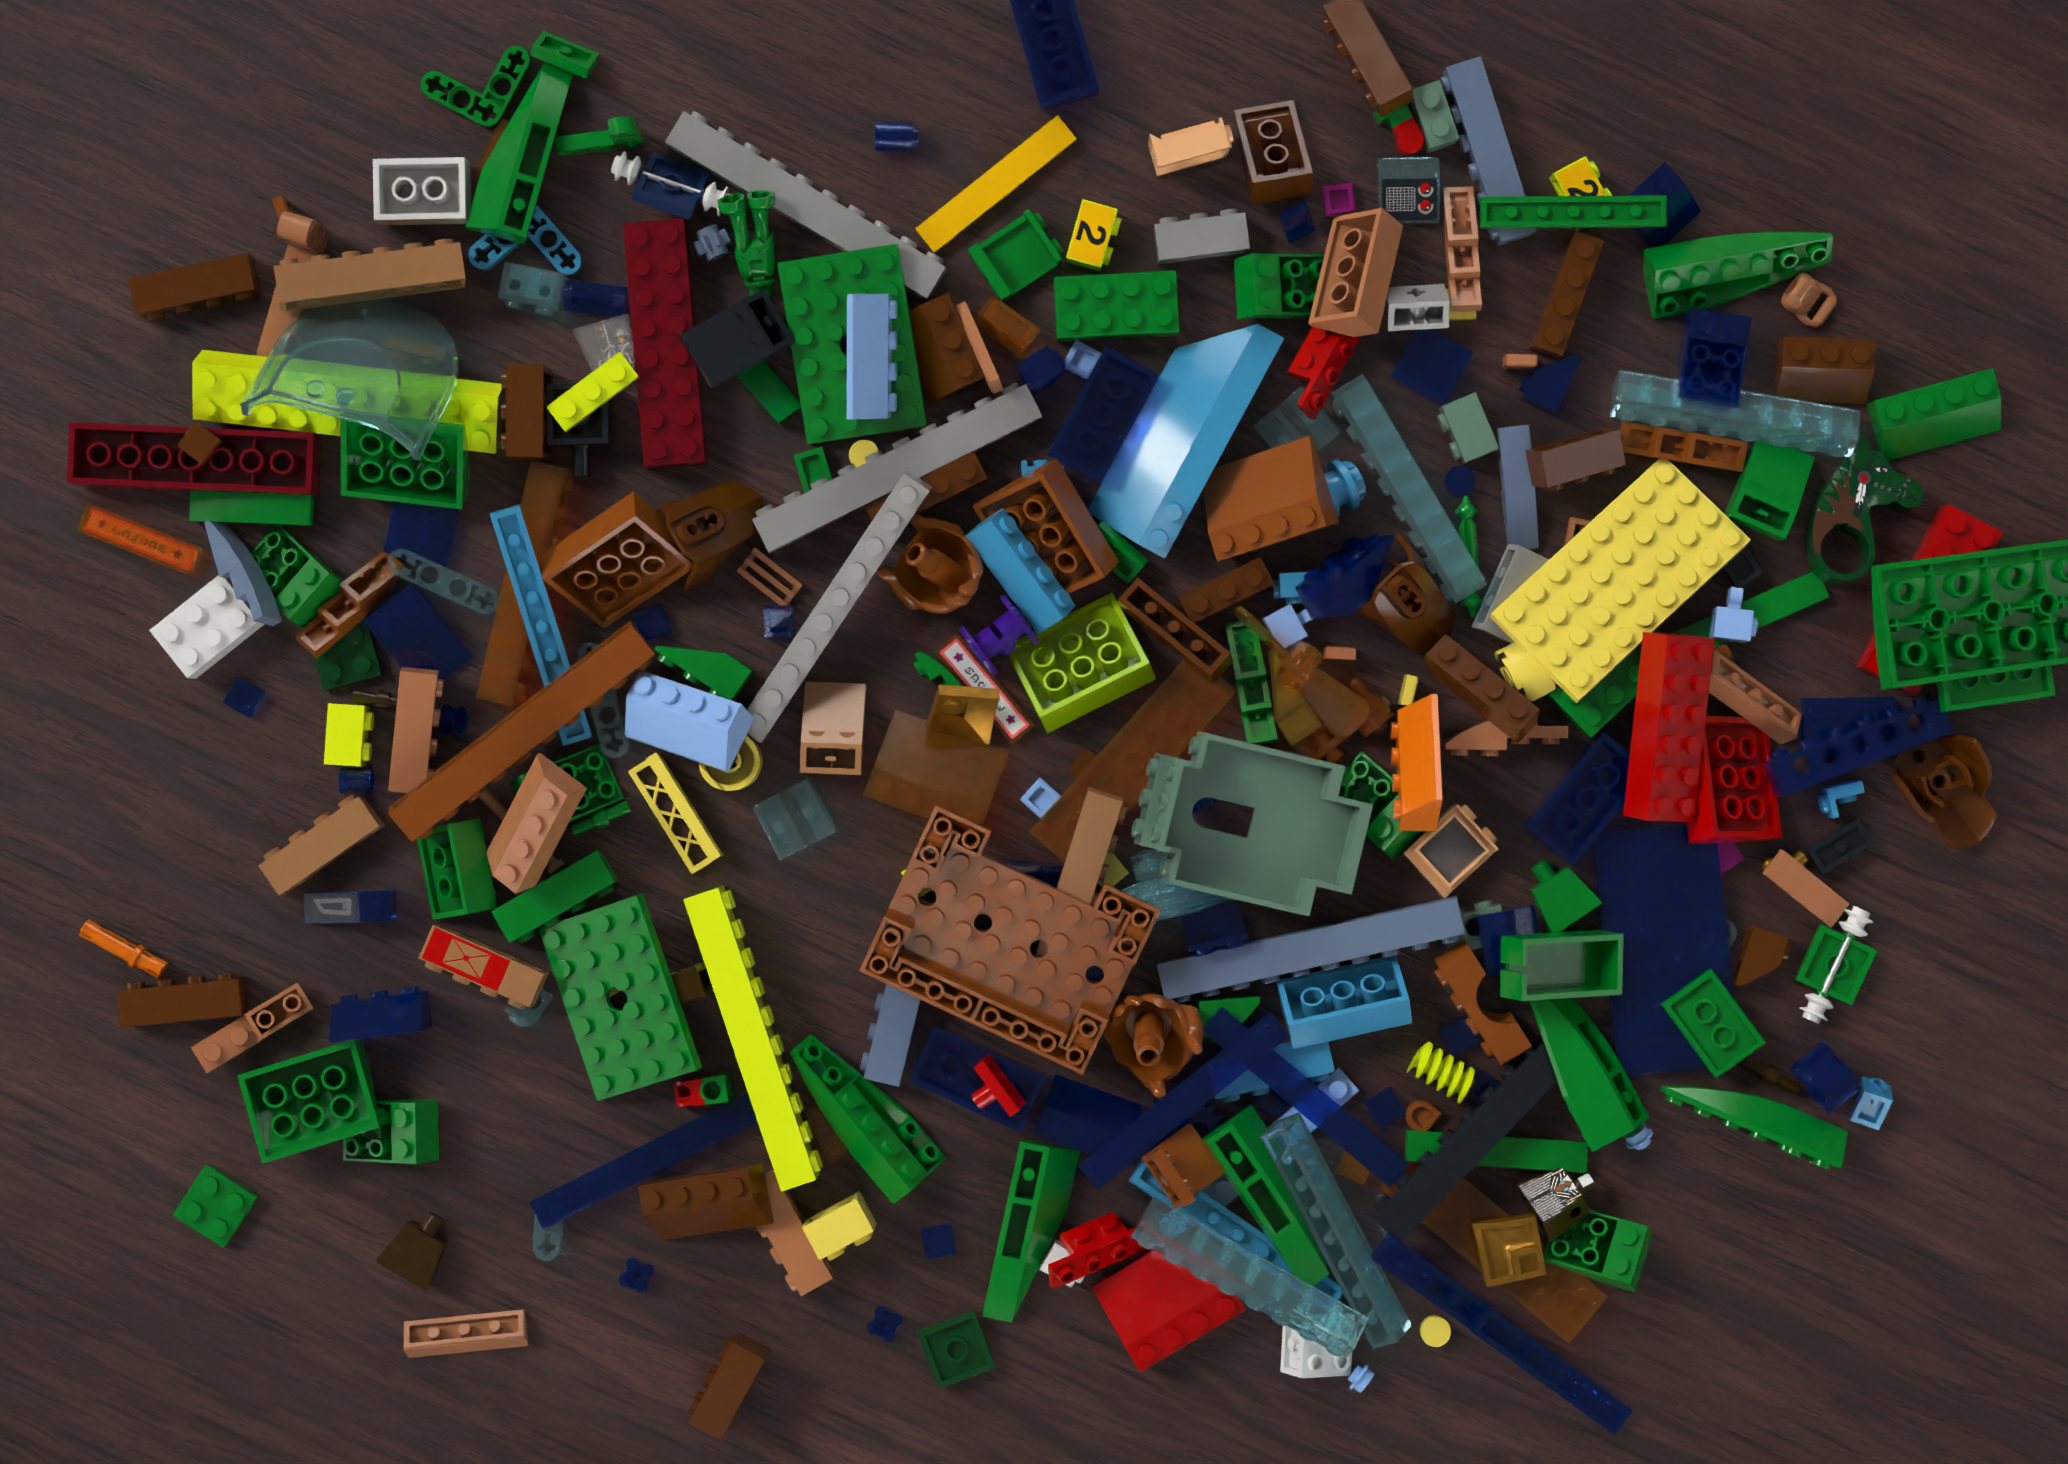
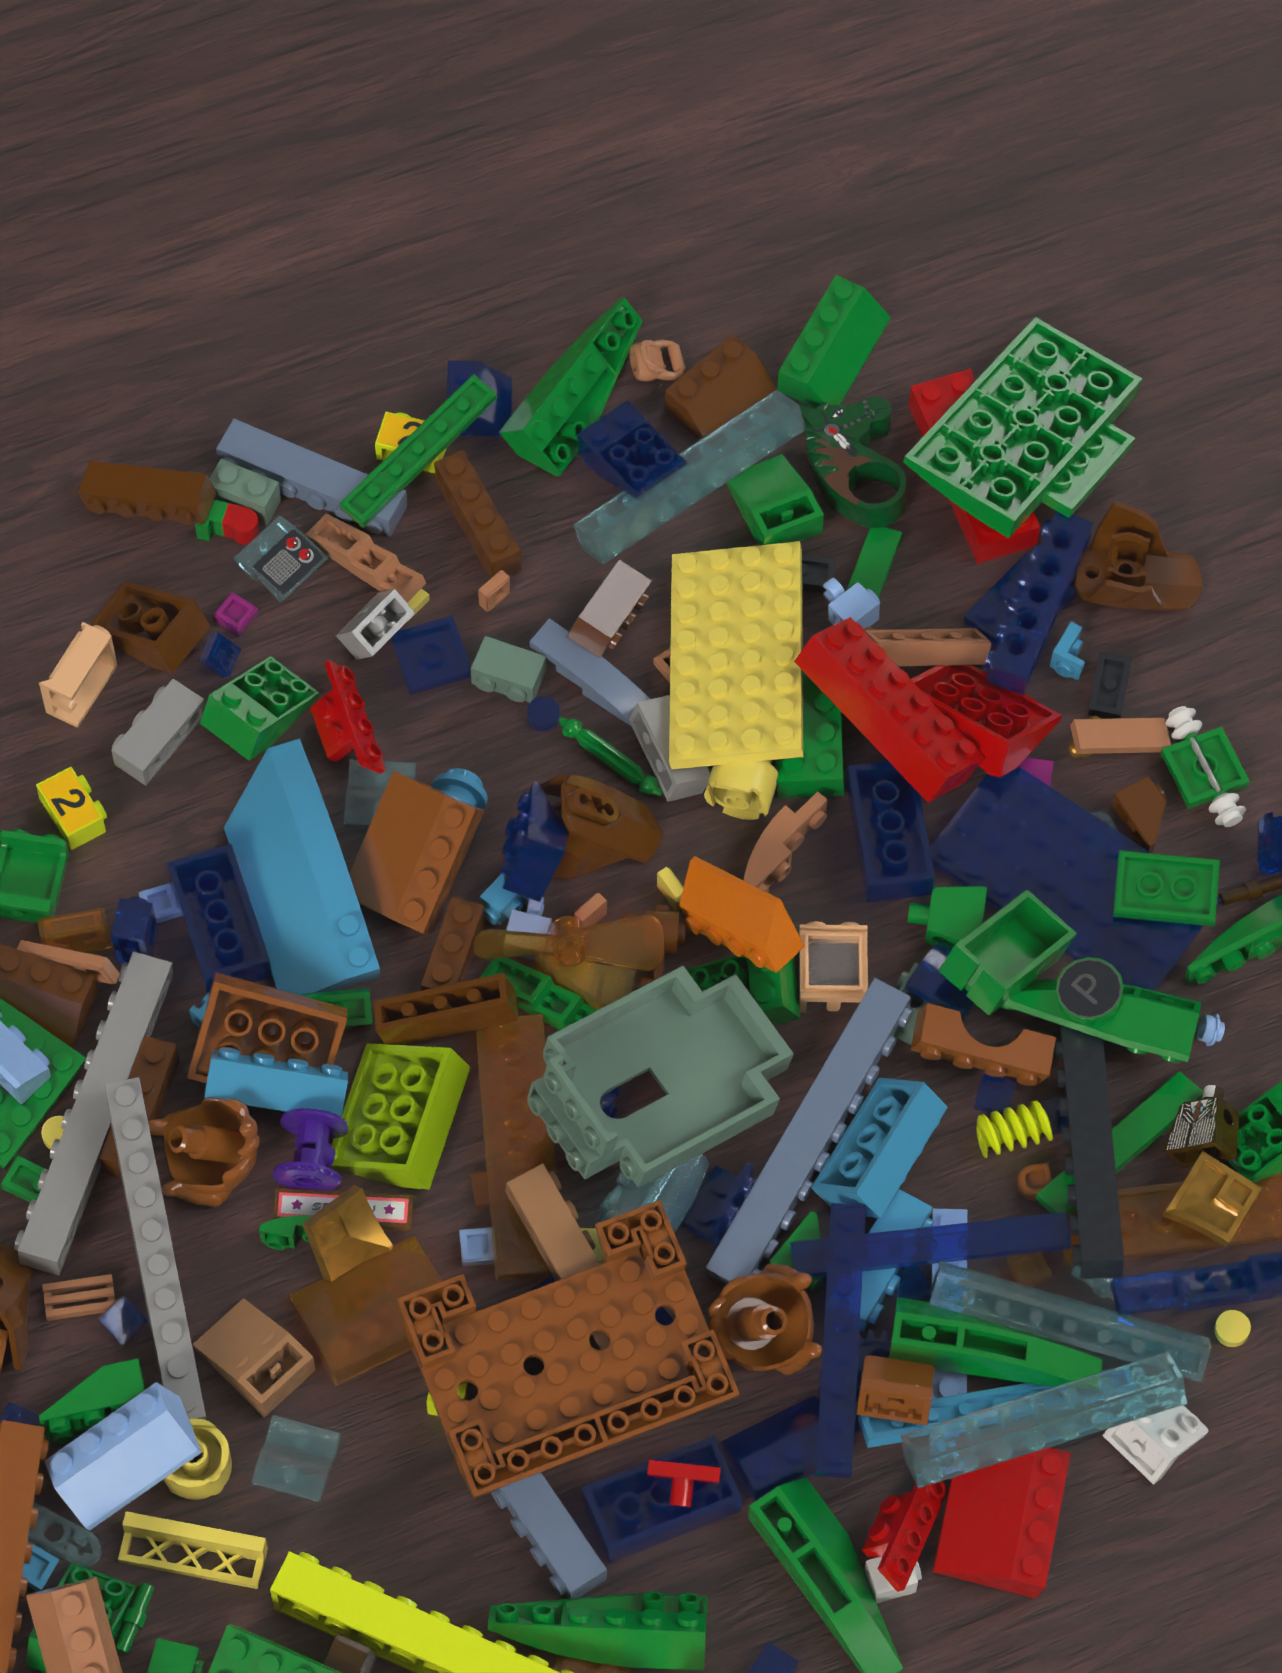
camera: 45 degrees left, 25 degrees down
(1116, 306) = (144, 836): green brick -> none
(1356, 273) = (303, 639): nougat slope -> none
(1360, 1378) = (1219, 1421): light blue plate -> none
(1384, 1107) = (1000, 1202): clear blue tile -> none
(1409, 488) = (508, 747): clear light blue brick -> none
(1481, 688) = (723, 825): reddish brown brick -> none
(1549, 384) = (533, 586): clear blue slope -> none
(1583, 1044) = (1089, 990): none -> black tile
(1683, 446) = (683, 533): dark orange slope -> none

